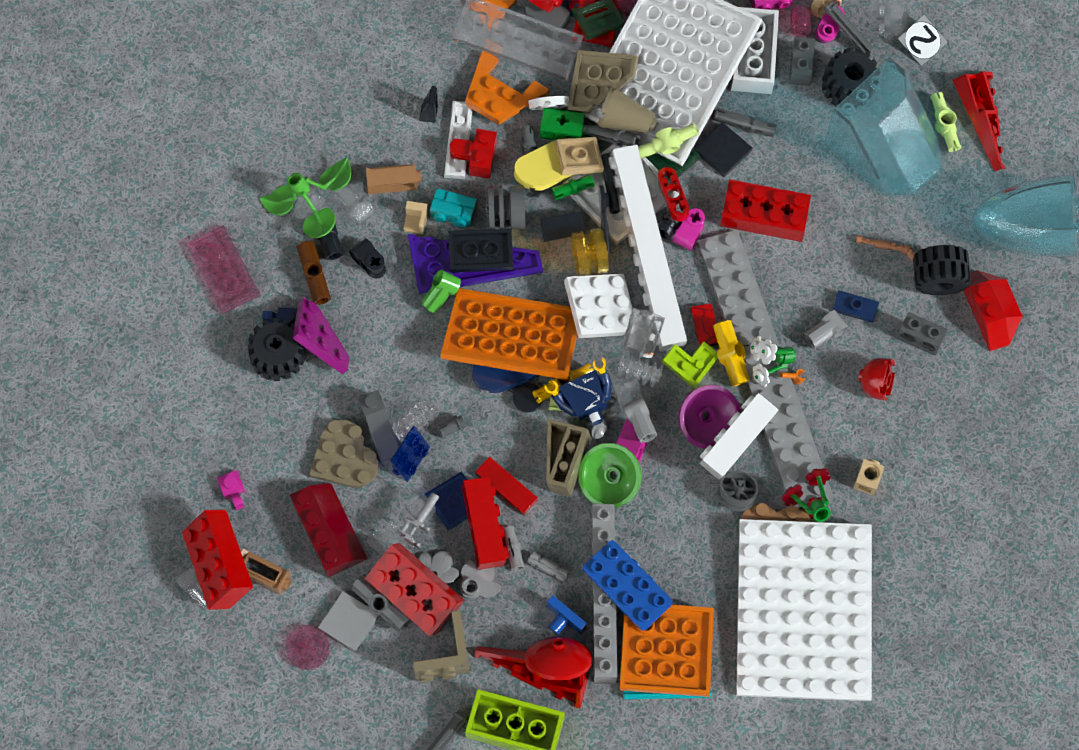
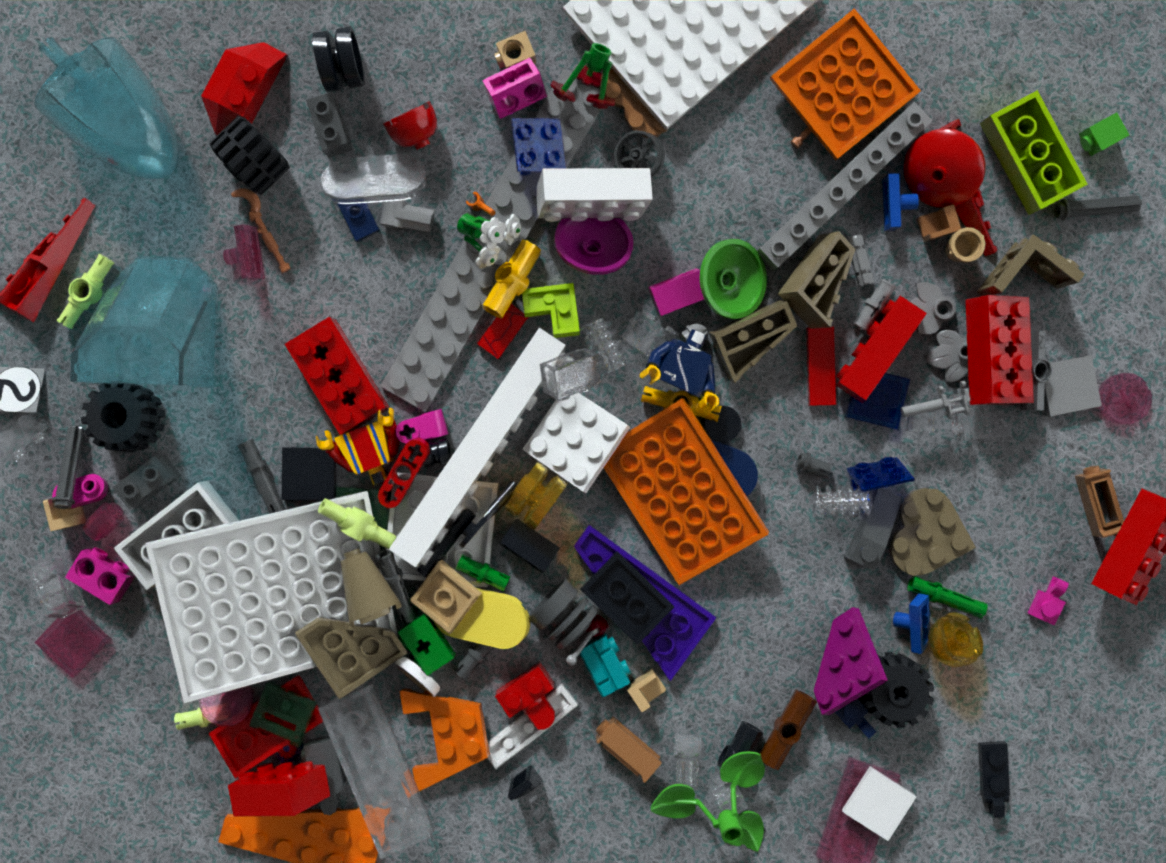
camera: 130 degrees left, 20 degrees up
(165, 364) = (994, 776): none -> black hinge
(219, 283) = (879, 803): none -> white tile
(269, 408) = (955, 641): none -> clear yellow cylinder
(297, 431) = (948, 597): none -> green pin
(300, 398) = (916, 621): none -> blue tile
(328, 528) = (1009, 483): dark red slope -> none
(368, 258) = (725, 698): black piece -> none
(443, 286) = (697, 597): bright green piece -> none
(479, 220) = (596, 629): none -> hinge
(498, 629) = (965, 245): none -> tan piece
(525, 632) = (939, 223): none -> medium nougat panel
(562, 523) = (817, 279): none -> dark tan wedge
(627, 585) = (824, 166): blue bracket -> none
(639, 416) = (655, 304): light grey piece -> none
(709, 187) = (365, 447): none -> torso
(798, 435) = (537, 144): none -> clear blue hinge
(846, 454) = (515, 88): none -> dark pink brick
(865, 329) = (373, 179): none -> clear tile
(886, 224) = (246, 253): none -> clear pink tile
(956, 368) = (338, 59): none -> black wheel

